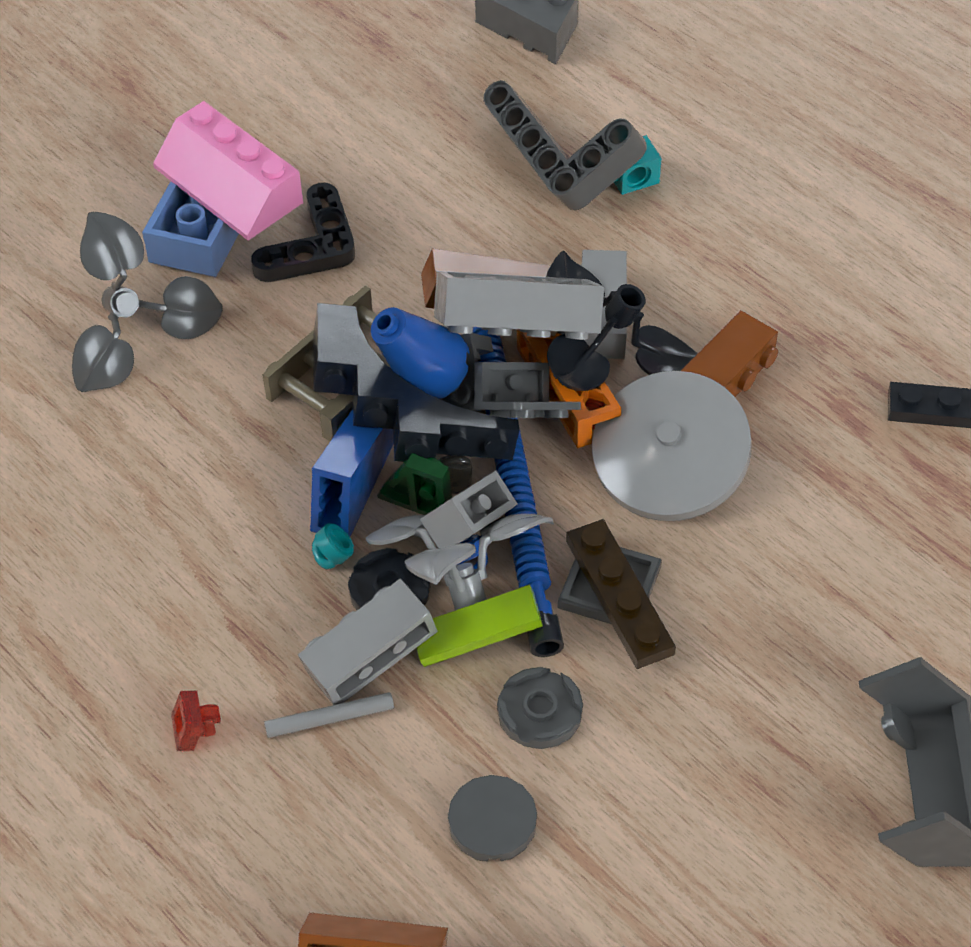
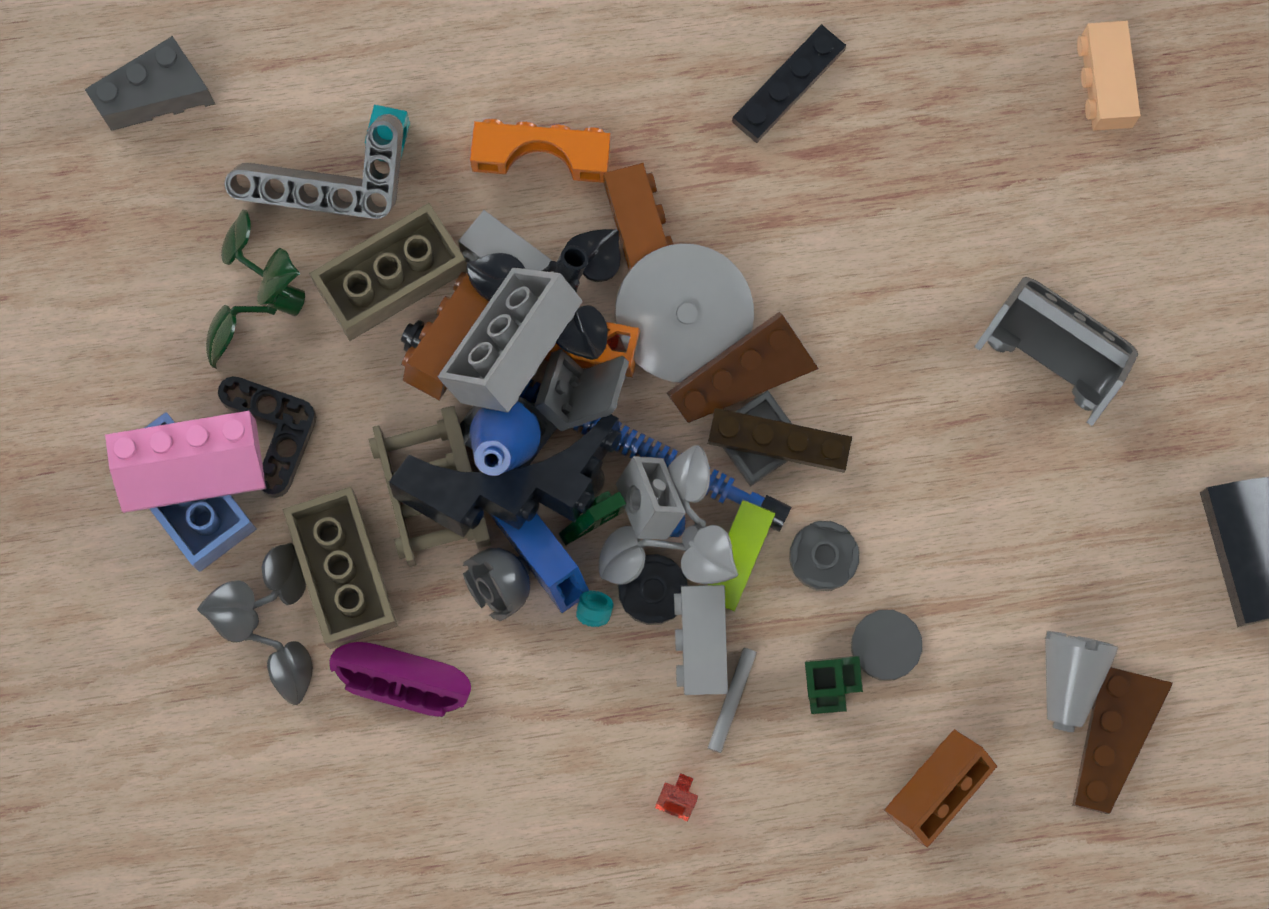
camera: 60 degrees left, 25 degrees up
(152, 438) = (400, 678): none -> magenta brick
(220, 338) = (340, 568): none -> dark tan brick
(298, 453) = (498, 580): none -> dark grey cylinder
(410, 780) = (830, 681): none -> dark green brick
(429, 171) = (273, 289): none -> dark green plant
(510, 220) = (389, 271): none -> dark tan brick
(674, 528) = (747, 368): none -> reddish brown wing
(696, 239) = (500, 145): none -> orange arch

